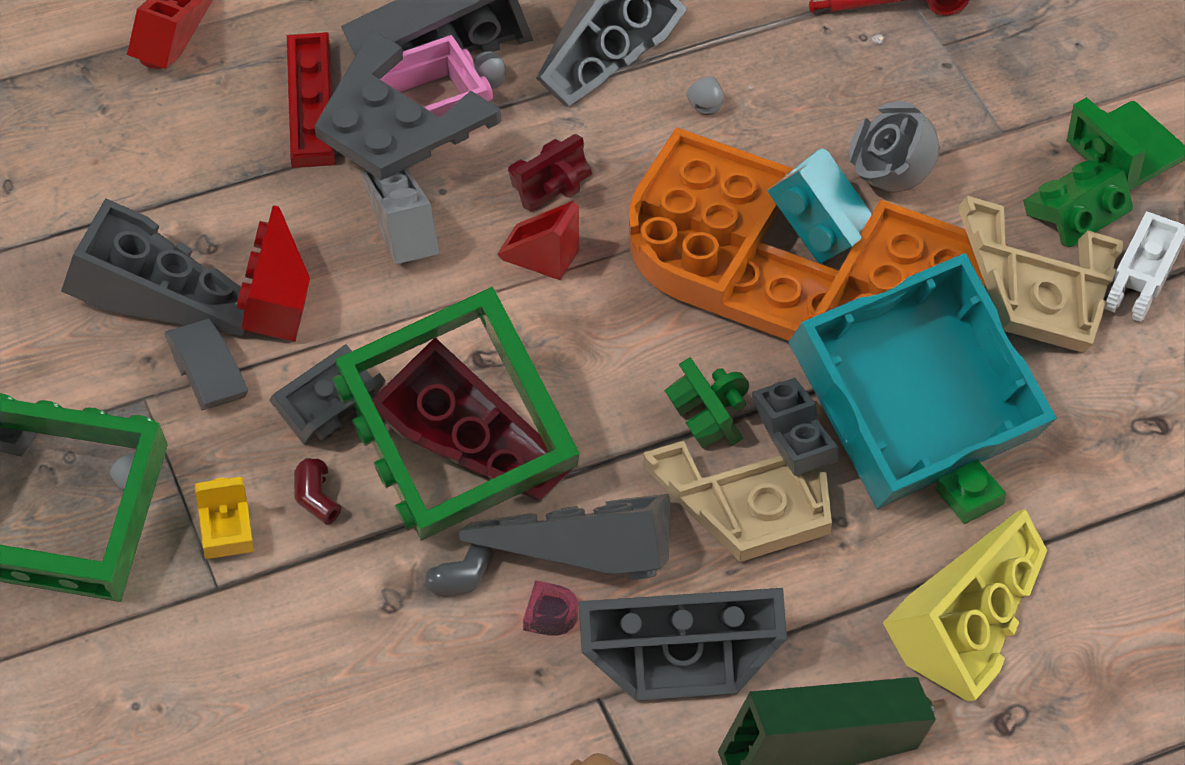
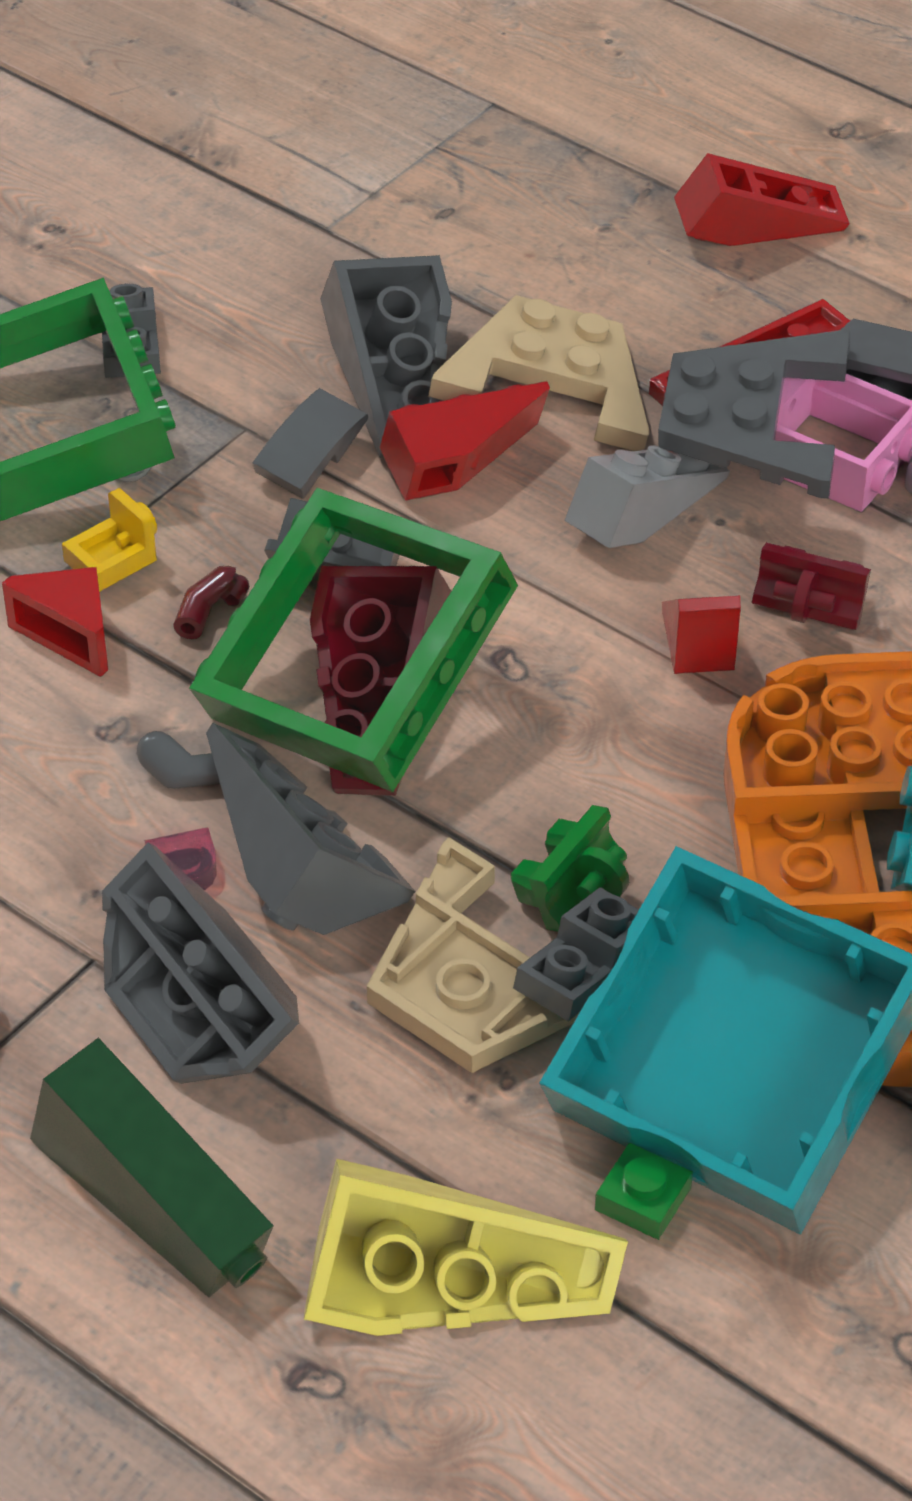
camera: 60 degrees right, 5 degrees down
(231, 188) = (568, 349): none -> tan wing
(278, 575) = (60, 614): none -> red slope

